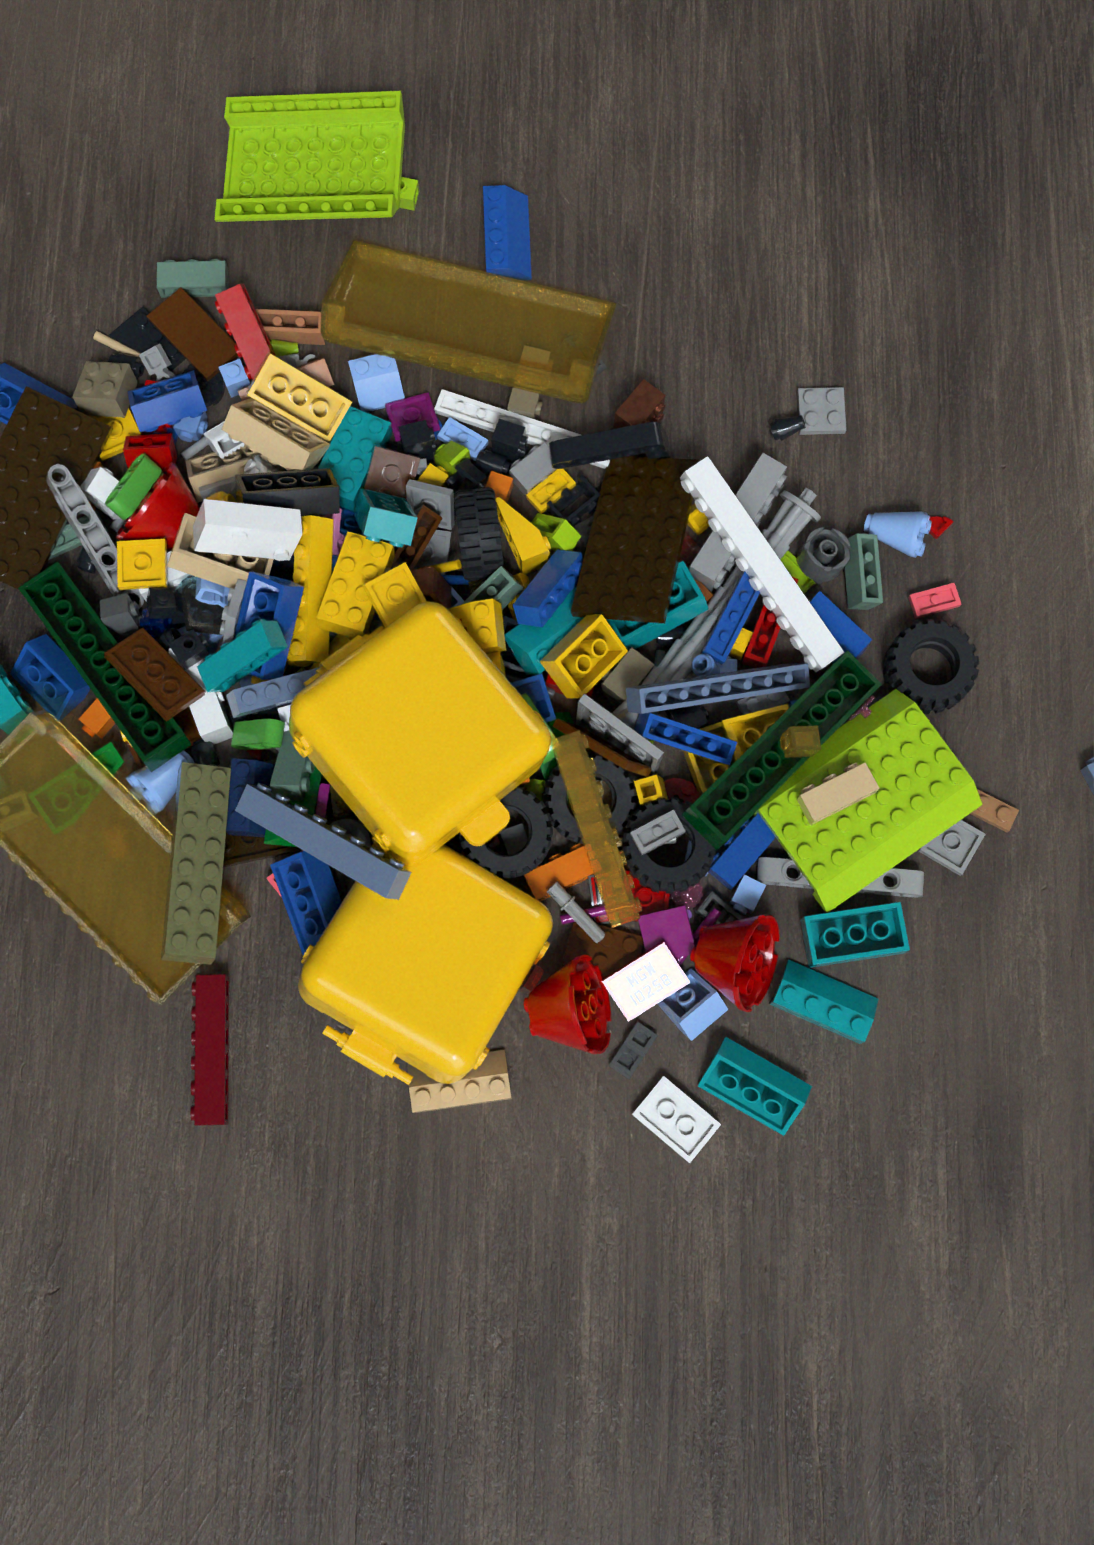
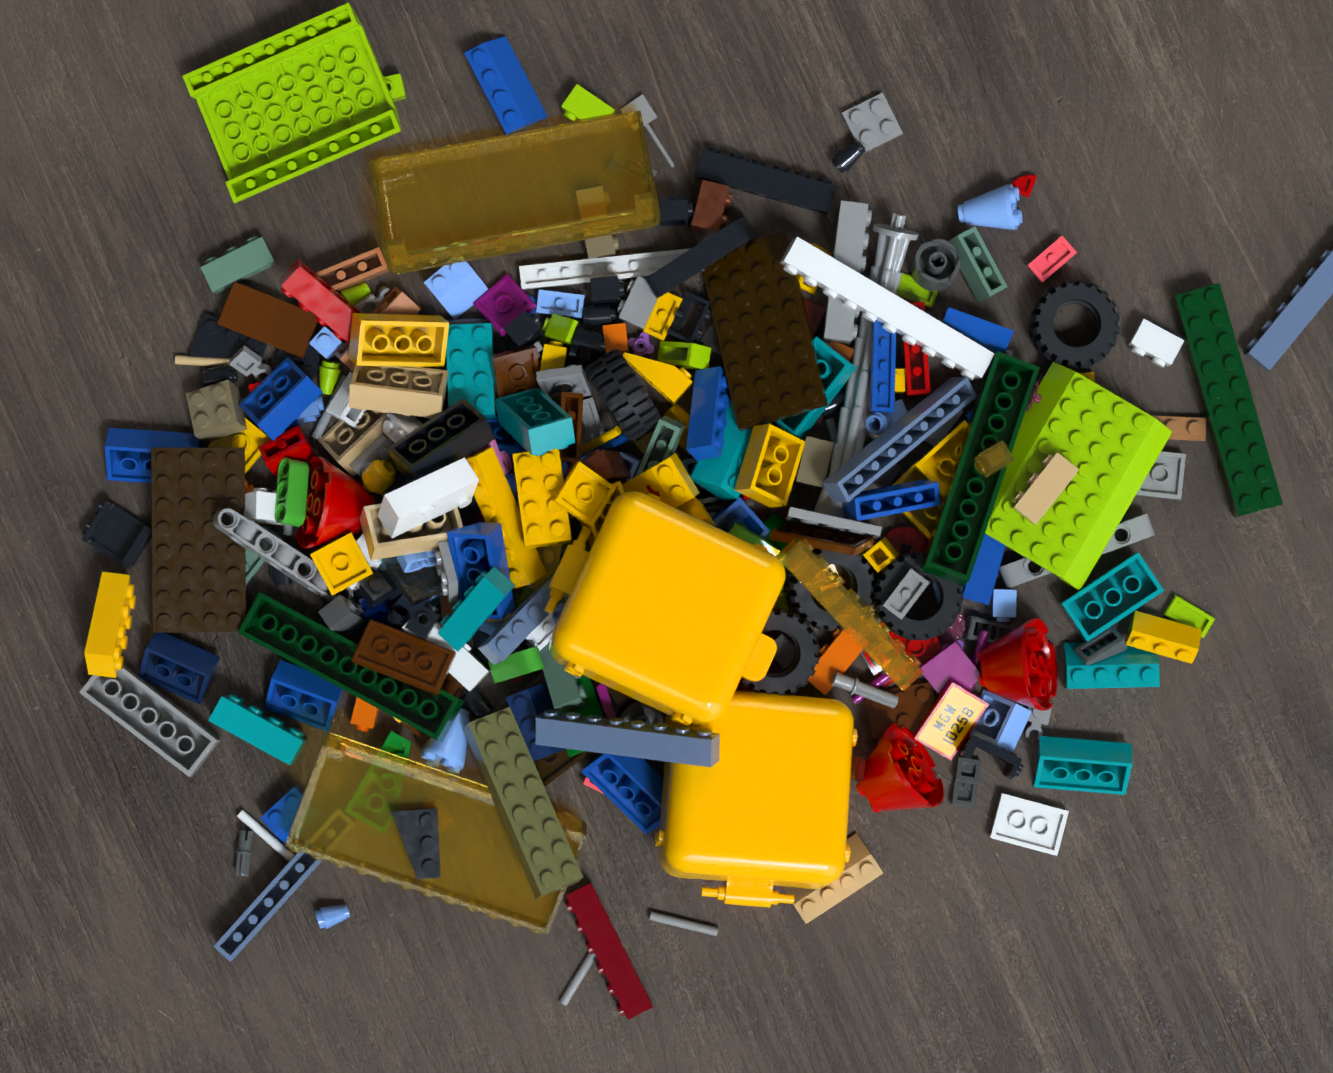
camera: 25 degrees left, 10 degrees up
(84, 855) = (421, 839): none -> black wing
(168, 1064) = (577, 979): none -> light grey bar
(221, 407) = (328, 376): none -> lime cone
(296, 1058) = (683, 923): none -> light grey bar
(522, 503) = (642, 339): none -> medium lavender plate
(568, 278) = (584, 106): none -> lime slope
(605, 401) = (675, 211): none -> black window
(621, 315) = (648, 116): none -> light grey piece
(674, 1029) = (973, 742): none -> black panel
(703, 417) = (765, 181): none -> black brick
(732, 1018) = (1037, 718): none -> light grey plate
(830, 978) = (1110, 649): none -> dark grey slope
(889, 997) = (1163, 637): none -> yellow brick
(921, 990) = (1188, 614): none -> lime tile
(1000, 719) = (1155, 343): none -> white brick
(1046, 803) = (1226, 400): none -> dark green brick

